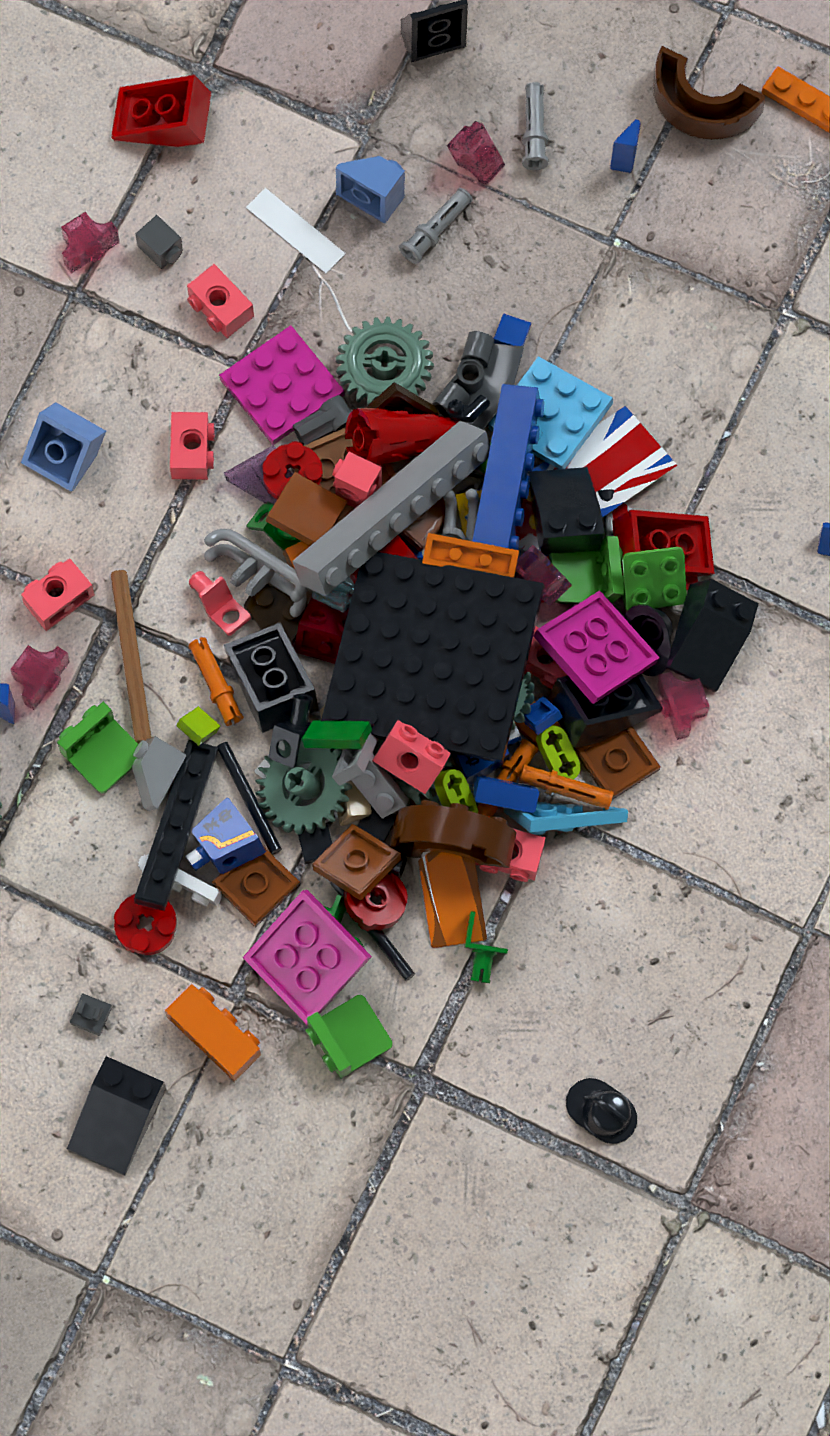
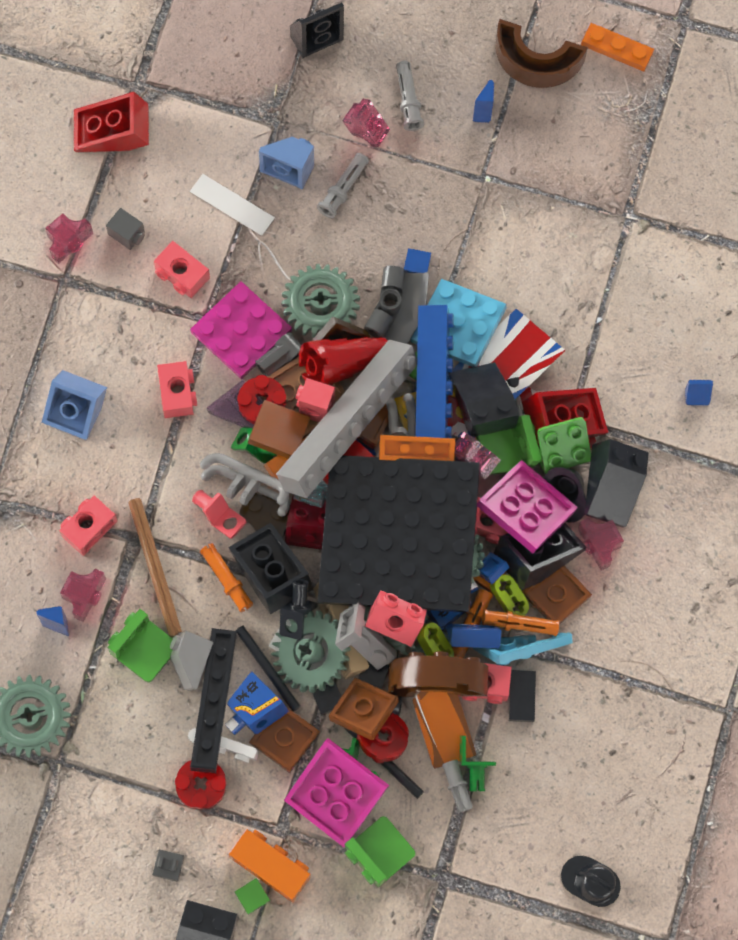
camera: 10 degrees left, 0 degrees up
(186, 1066) = (252, 896): none -> bright green tile
(198, 725) = (218, 616): lime tile -> none
(337, 734) = (332, 608): green tile -> none
(457, 971) = (457, 785): none -> light grey axle
(467, 413) = (394, 332): black arm -> none
(554, 876) = (522, 696): none -> black tile

